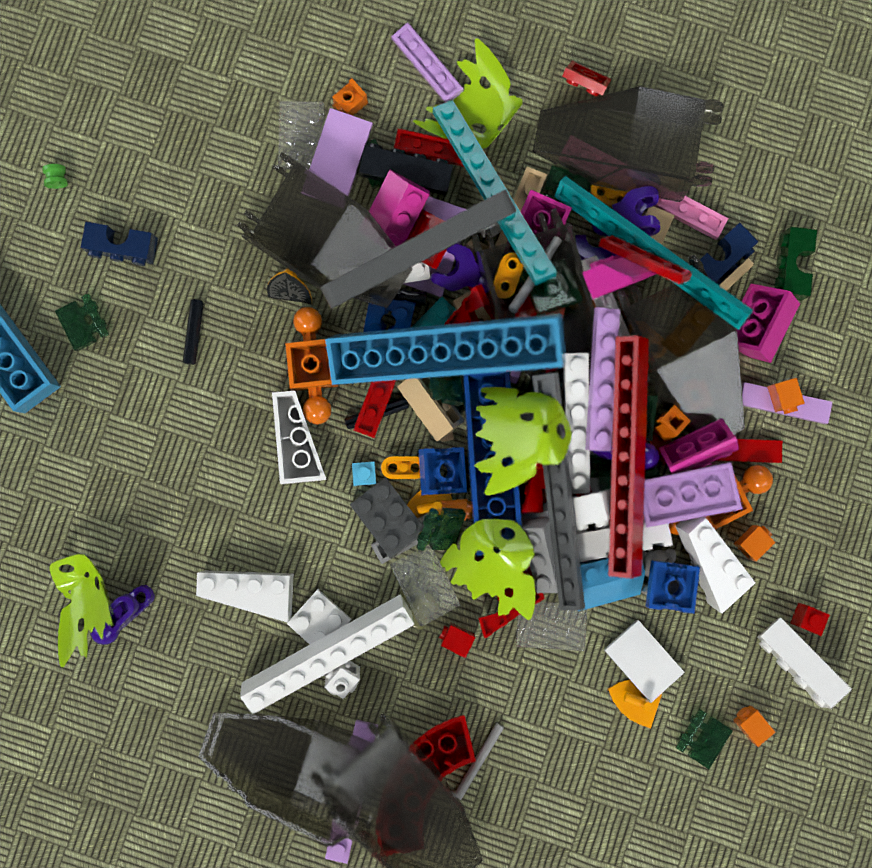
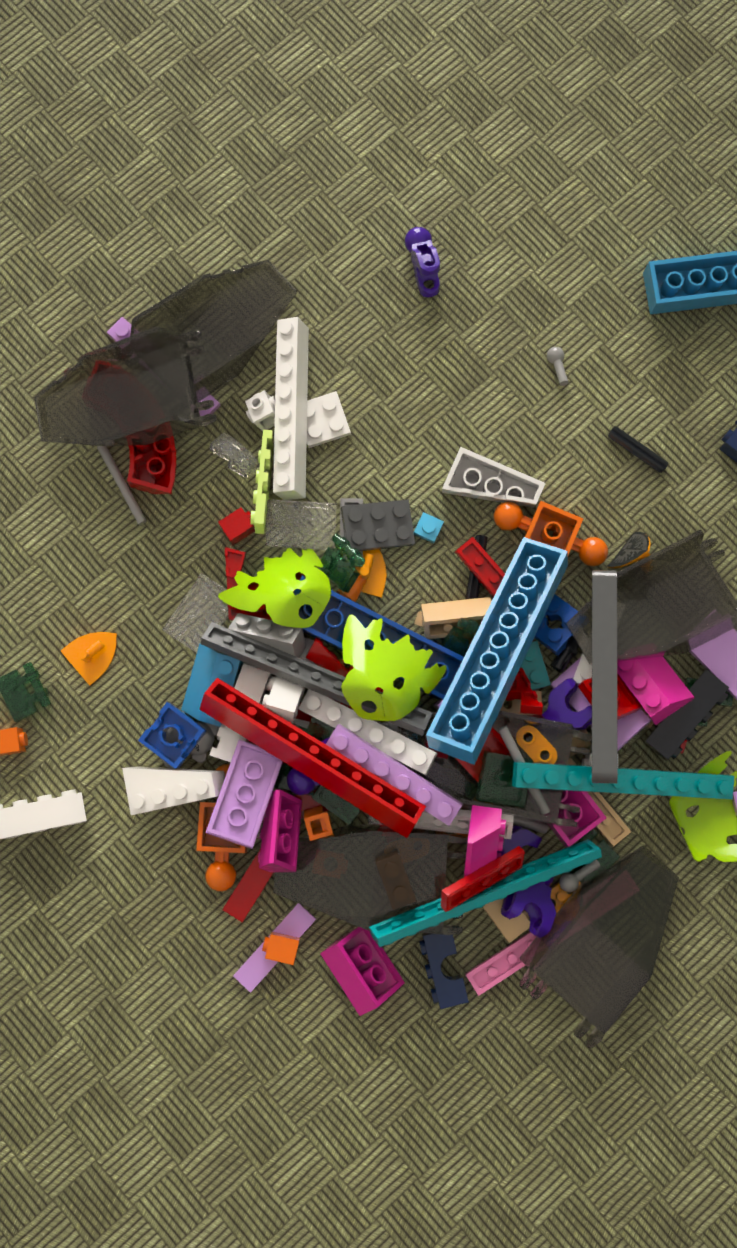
camera: 115 degrees right, 5 degrees down
(76, 326) = (700, 355): clear green plate -> none
(86, 603) = (449, 237): lime piece -> none
(147, 448) = (555, 356): none -> light grey bar
(252, 591) = (379, 378): white wedge -> none
(395, 678) = (238, 457): none -> clear slope
(403, 467) = (413, 564): light orange plate -> none
(405, 640) = (263, 479): none -> yellowish green wing
(427, 145) = (700, 749): red tile -> none
(430, 477) = (406, 588): blue brick -> none
(580, 75) = (687, 936): red plate -> none
(598, 191) = (569, 882): none -> light grey bar
(644, 661) = (121, 678): white tile -> none
(736, 274) = (419, 965): tan tile -> none
(755, 542) = (165, 840): orange brick -> none
(795, 243) = (418, 1048): dark green arch -> none
(810, 619) = (68, 848): red brick -> none

